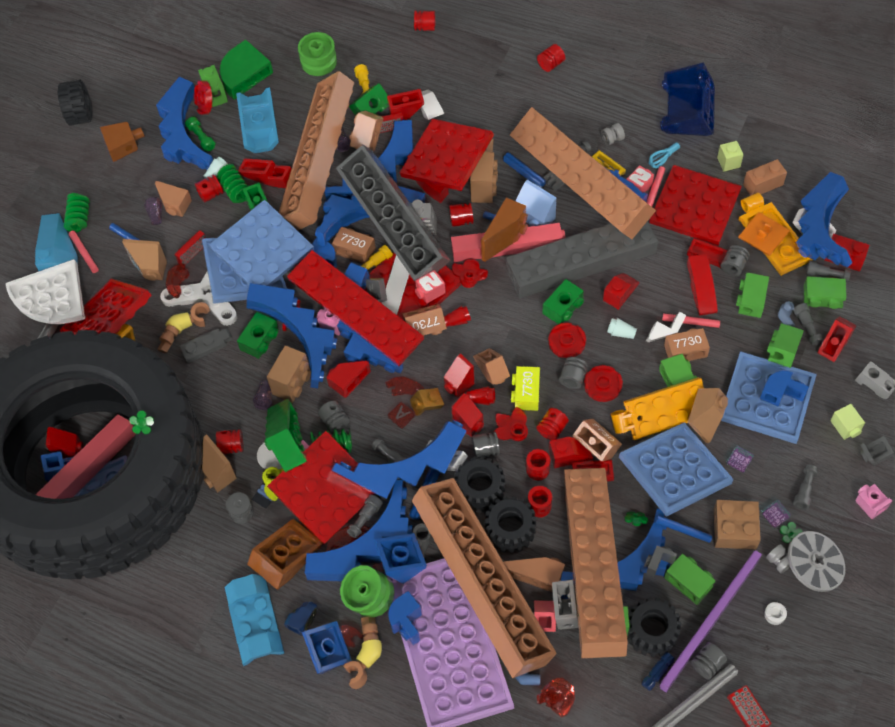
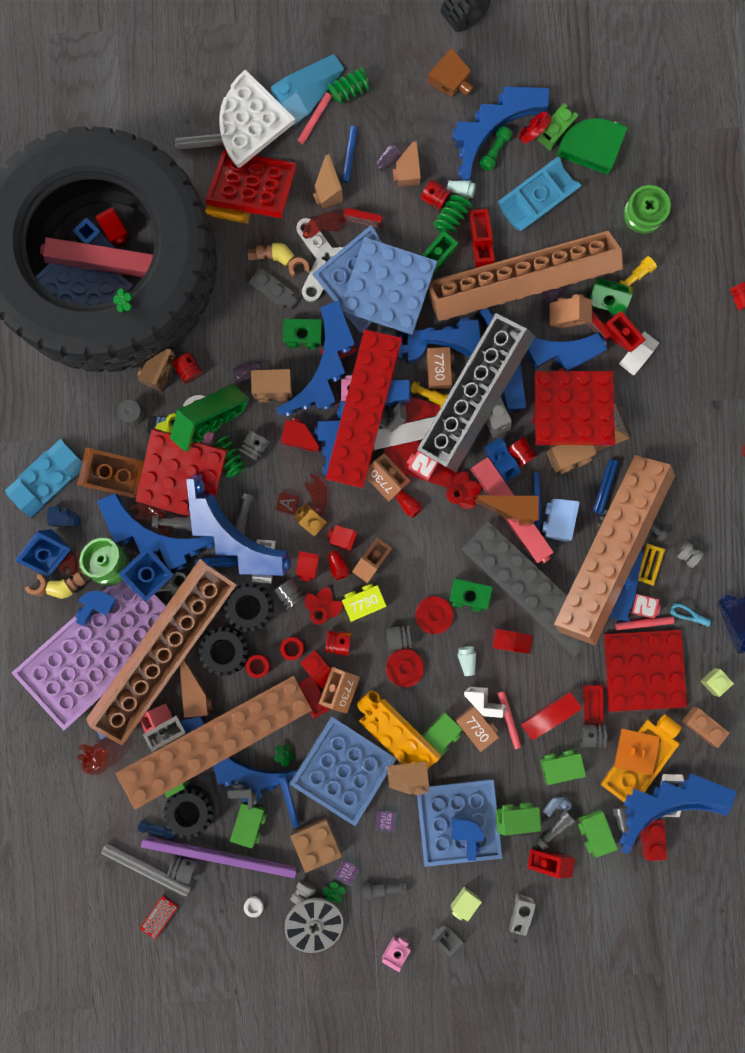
camera: 60 degrees right, 25 degrees up
(462, 227) = (502, 460): none -> blue brick

